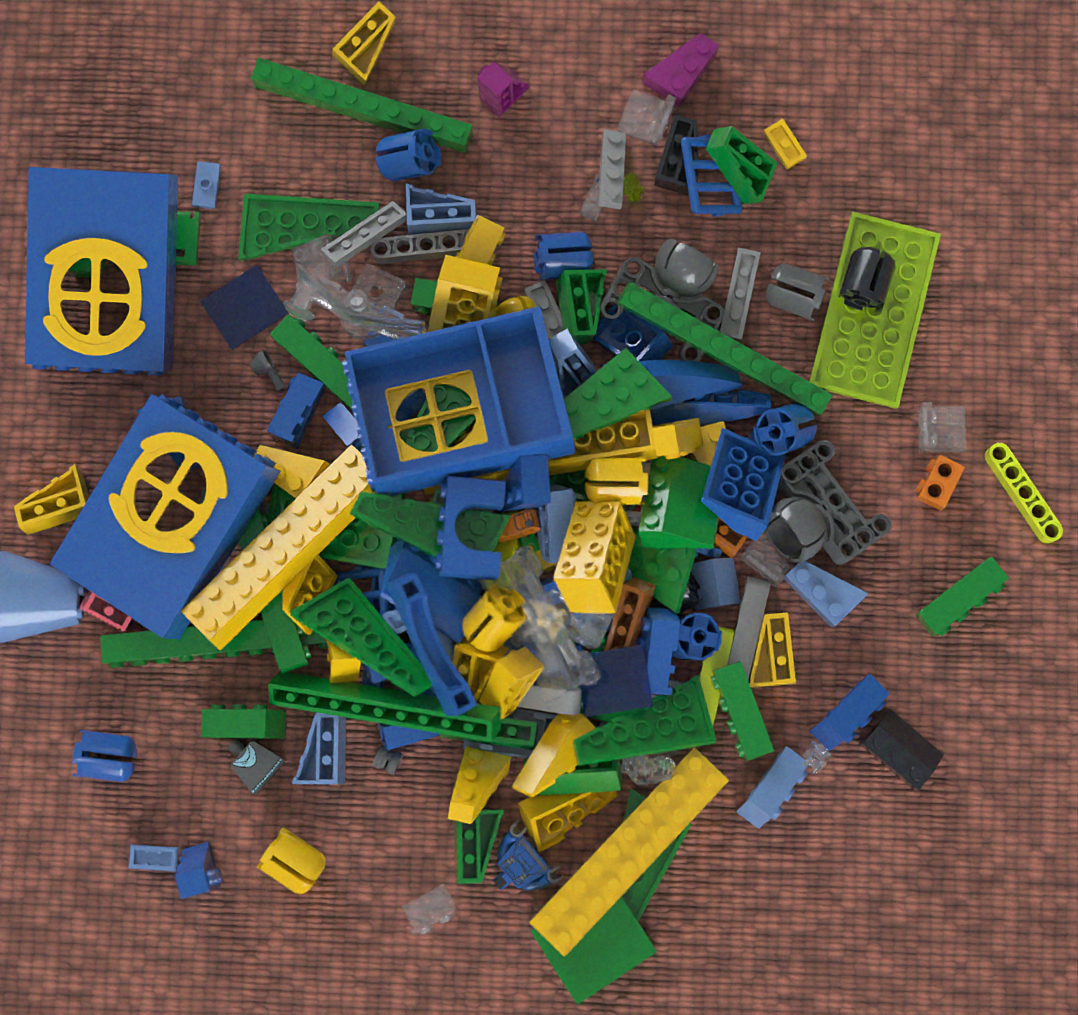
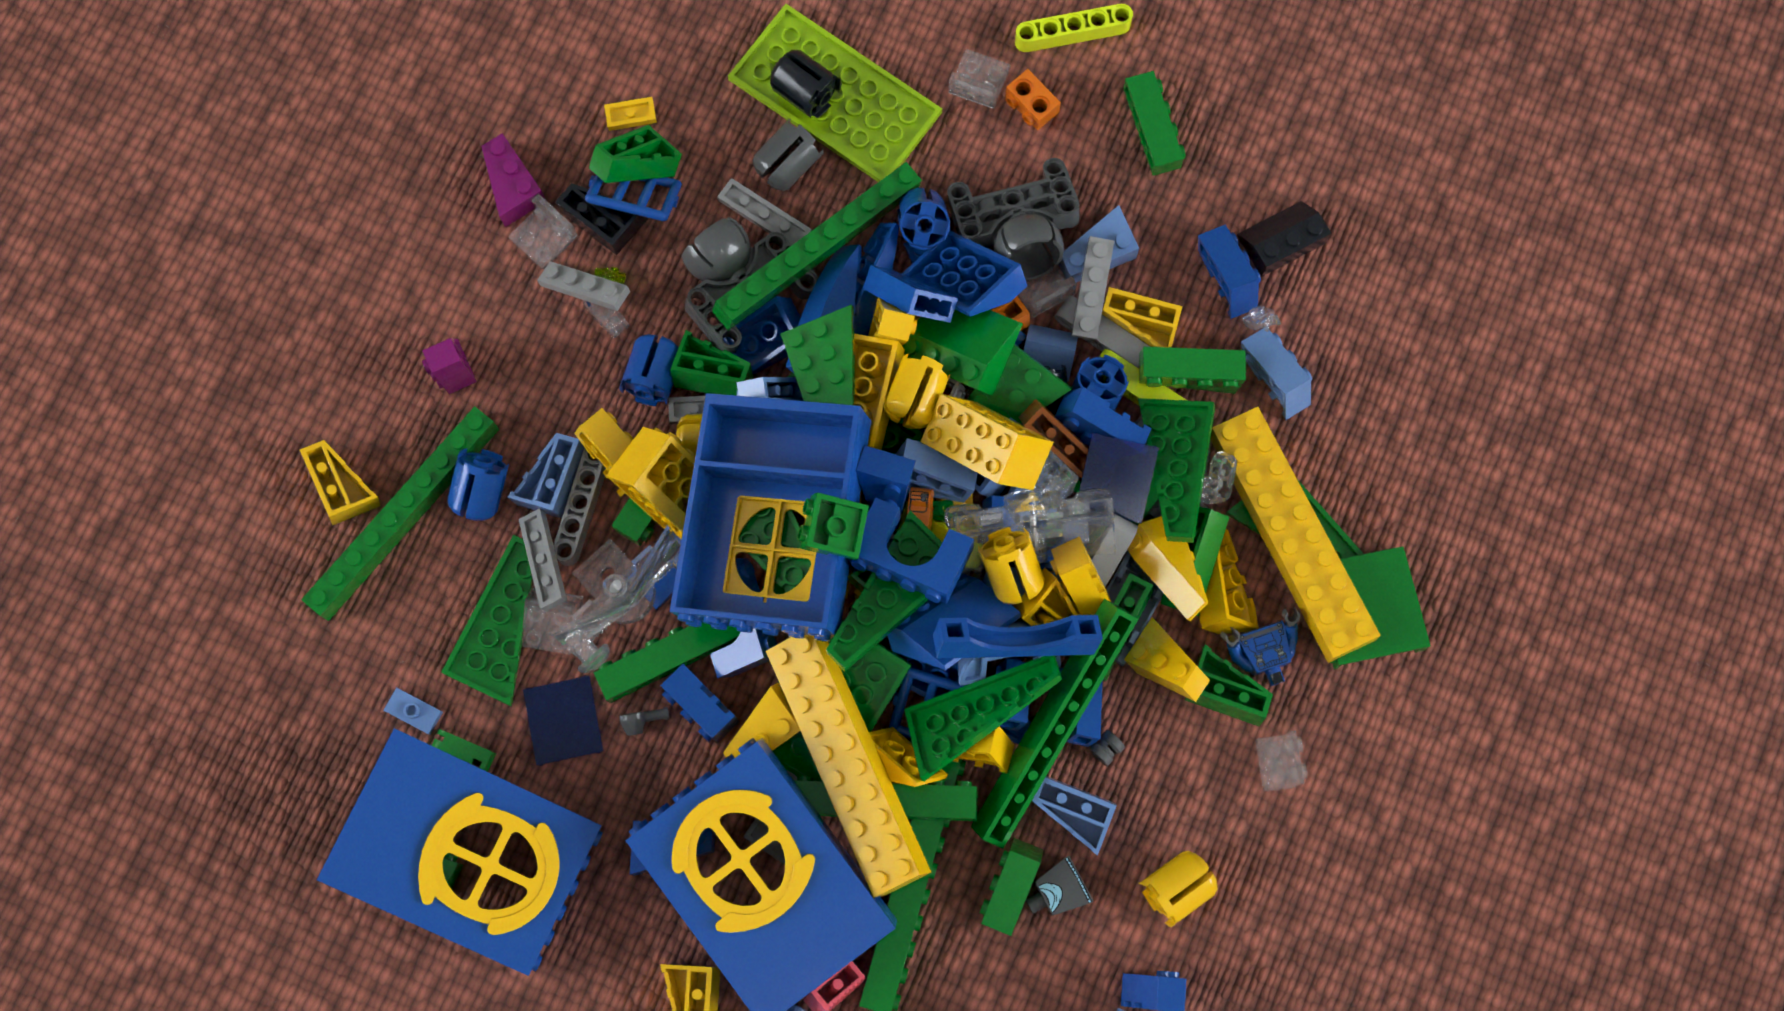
camera: 70 degrees left, 5 degrees down
(458, 454) = (833, 526): none -> green plate
(703, 442) = (910, 294): none -> blue slope
(780, 598) = (1092, 288): none -> light grey plate

